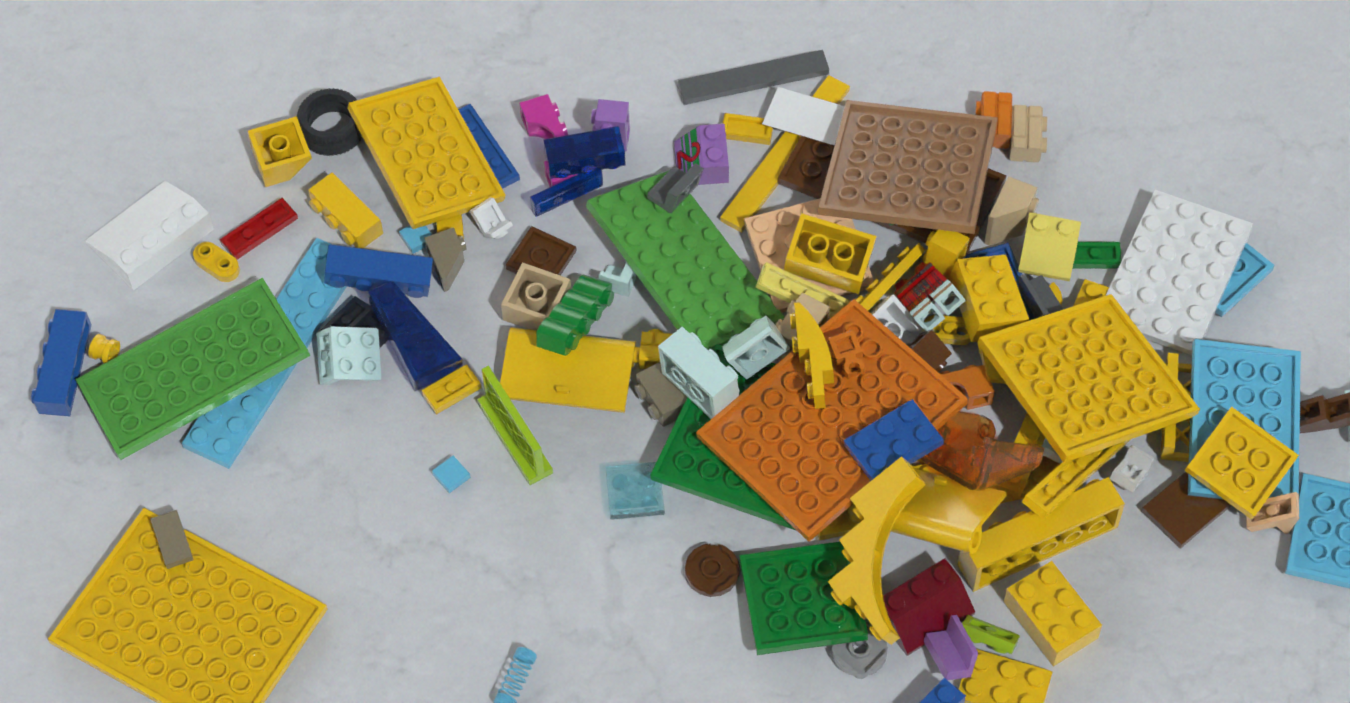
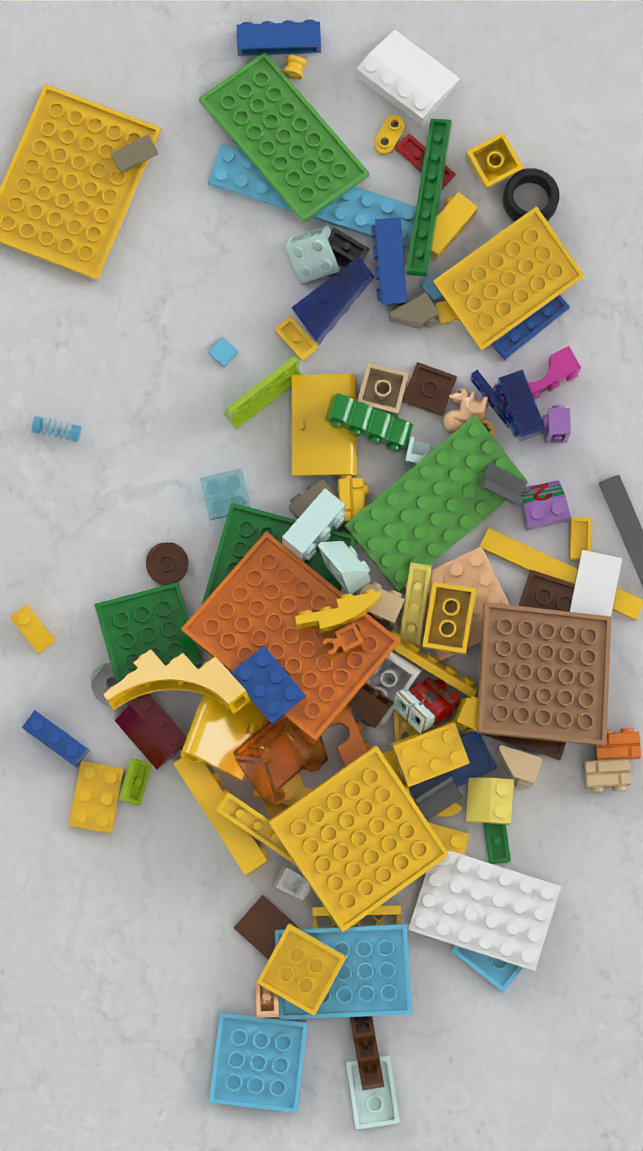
camera: 80 degrees right, 20 degrees up
(308, 221) = (428, 197): none -> green tile
(490, 219) = (455, 342): white bracket -> none
(575, 216) = (468, 407): none -> light nougat animal
(952, 650) = (114, 752): medium lavender panel -> none
(1052, 613) = (158, 828): yellow brick -> none

